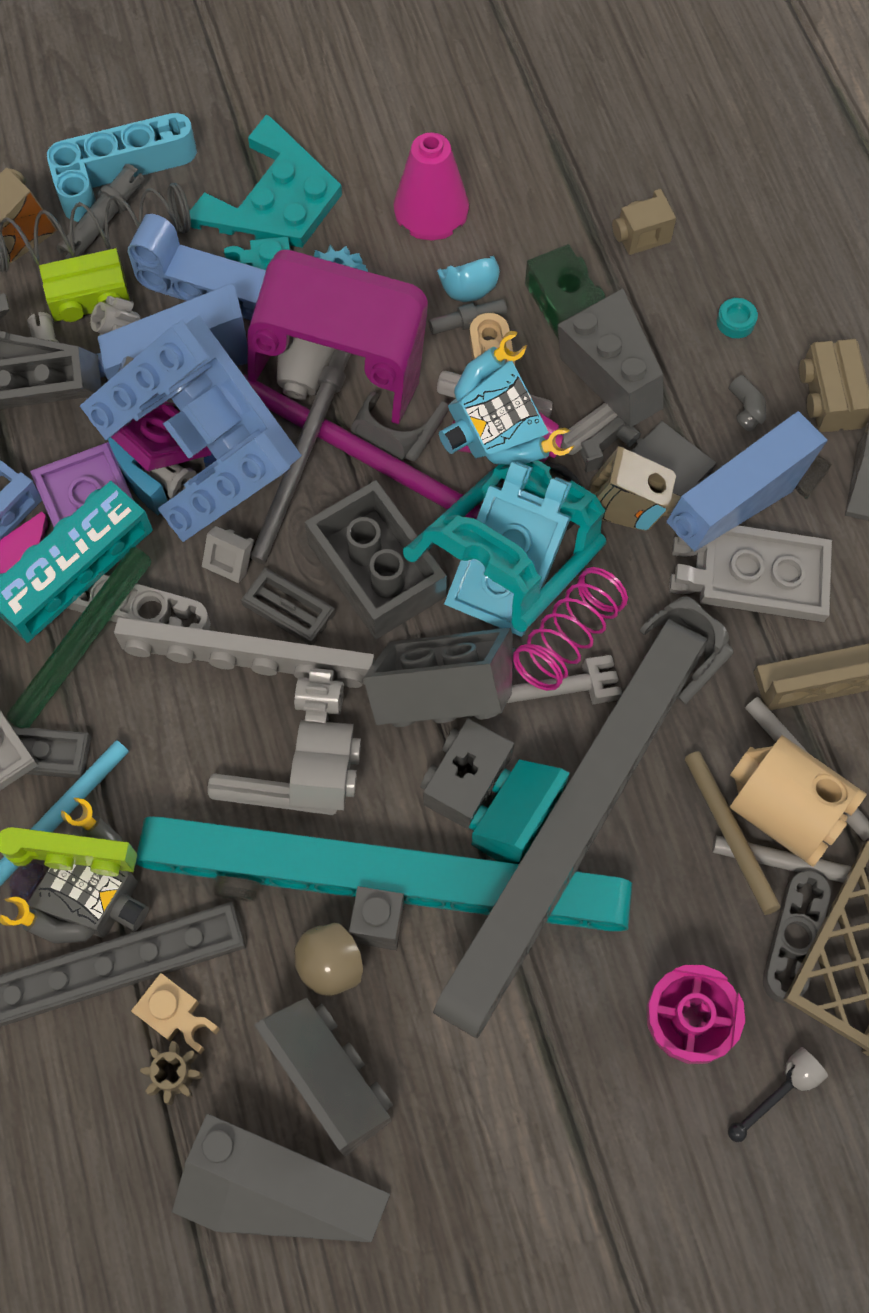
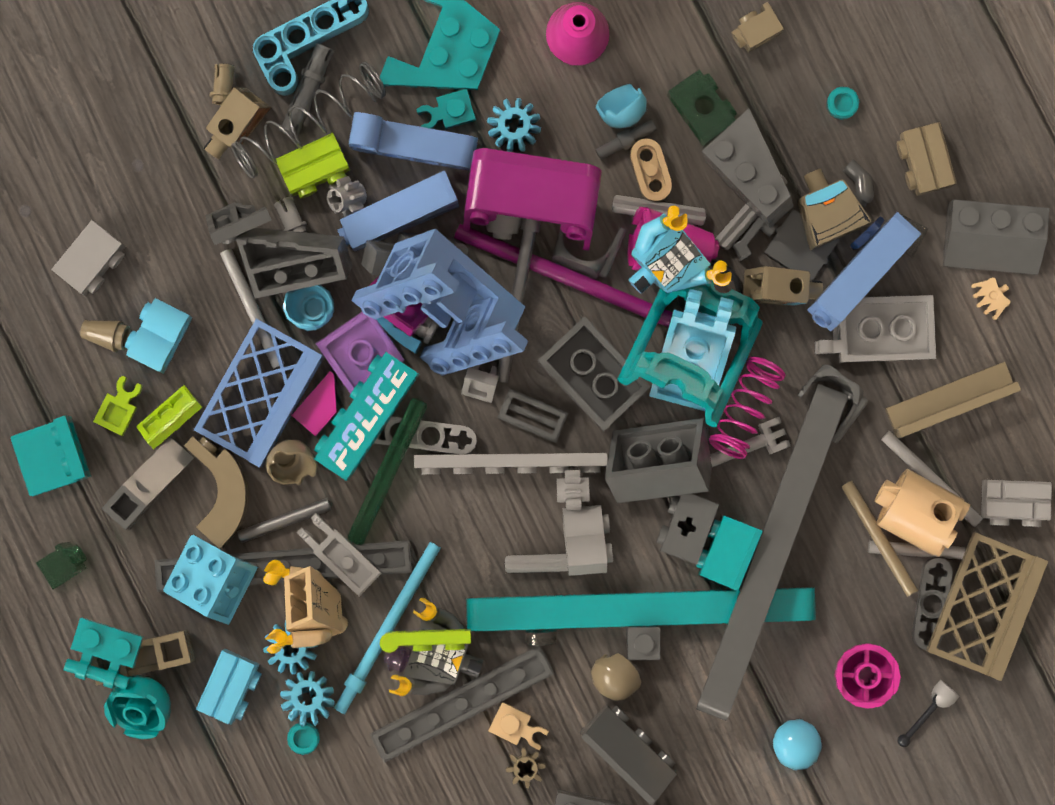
camera: 10 degrees left, 20 degrees up
(34, 433) = (309, 307): none -> medium azure hair
(578, 1110) = (797, 744): none -> medium azure hair
(709, 422) = (829, 210): none -> dark tan torso

